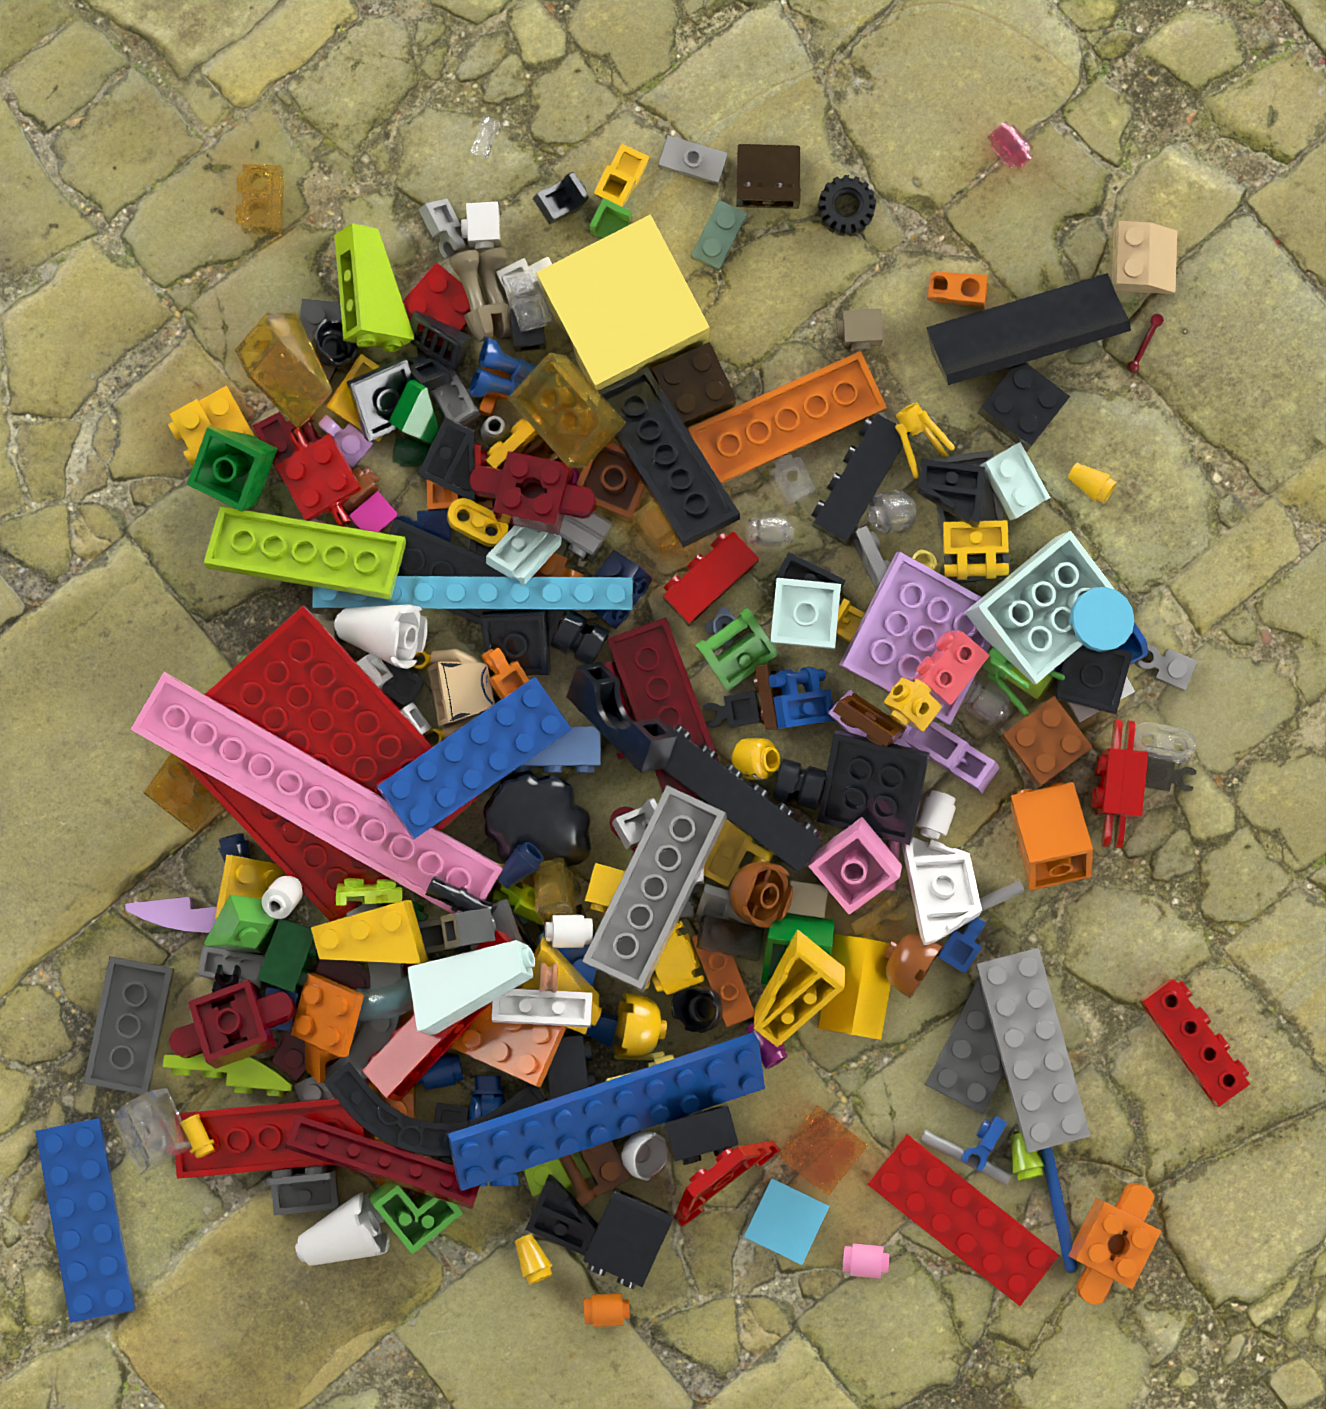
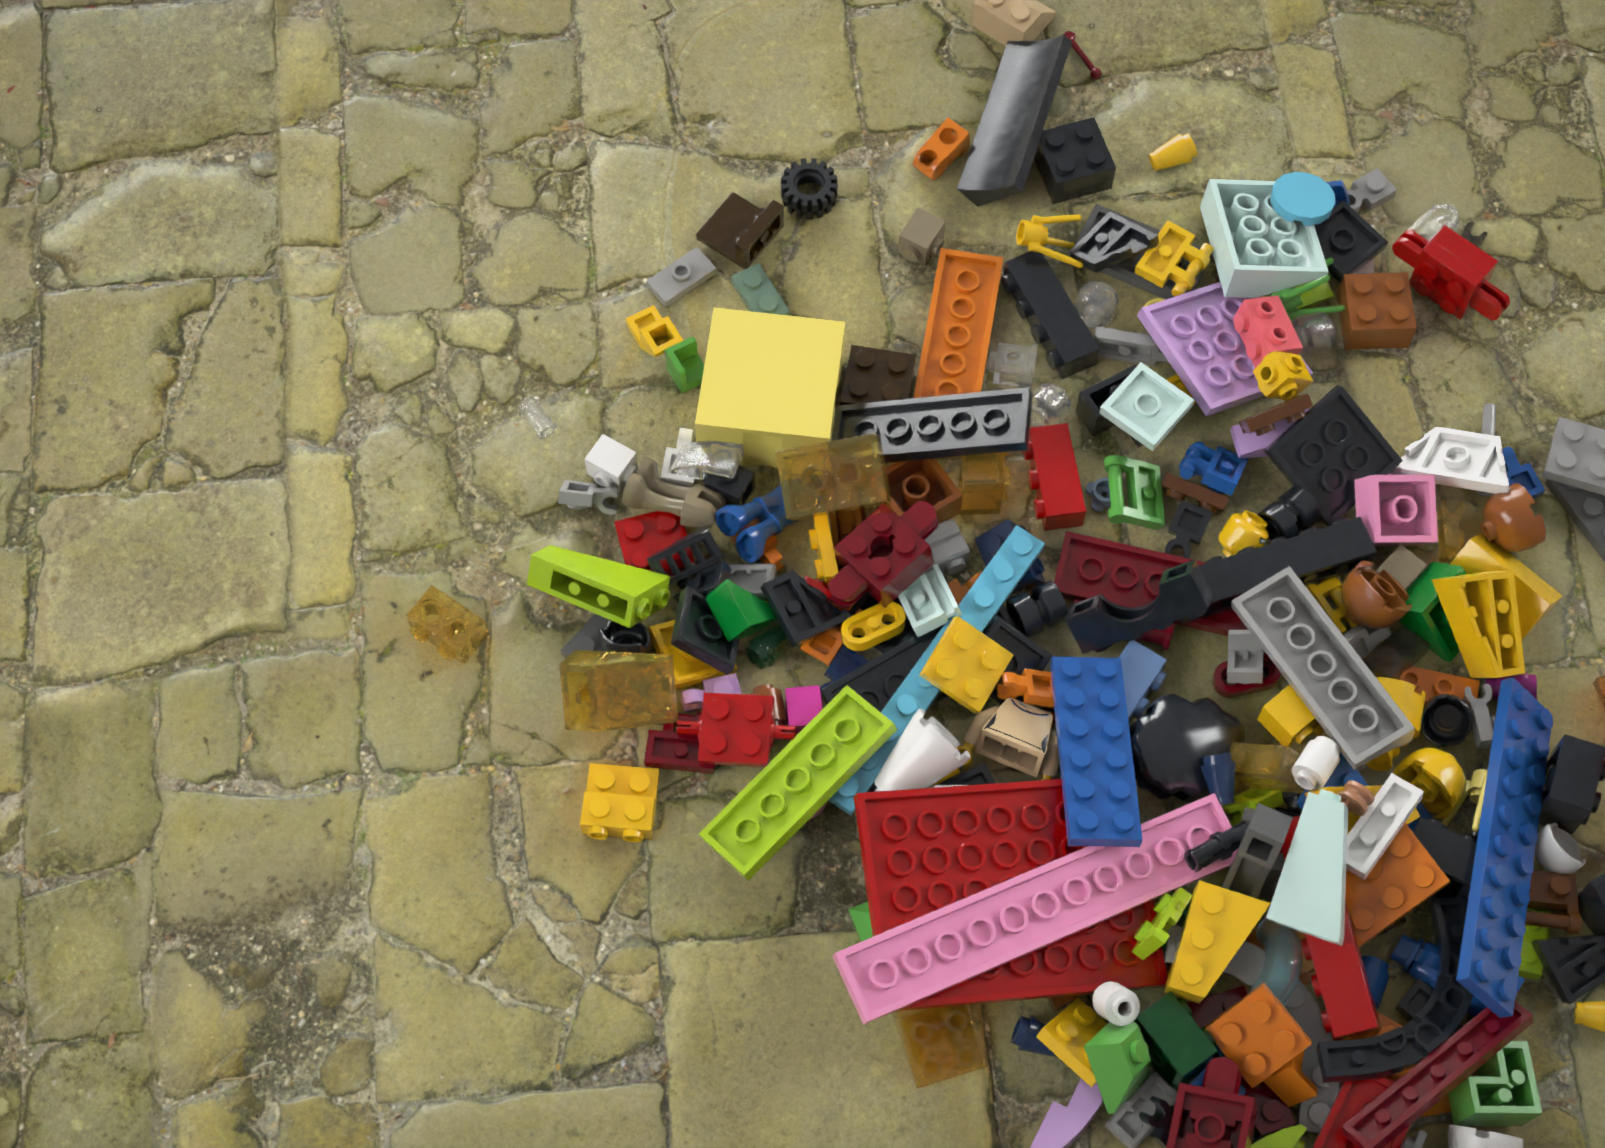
camera: 55 degrees left, 20 degrees down
(232, 467) = (670, 798): green slope -> none
(484, 615) = (966, 665): none -> yellow plate
(502, 434) = (799, 561): light grey cone -> none
(562, 198) = (637, 387): black bracket -> none
(722, 1031) = (1482, 722): none -> light grey plate
(936, 815) = (1390, 427): white brick -> none
(953, 755) = (1359, 378): lavender slope -> none
(1011, 145) = (850, 47): clear pink brick -> none
(1015, 481) = (1135, 203): light aqua plate -> none
(1052, 835) = (1462, 352): orange slope -> none

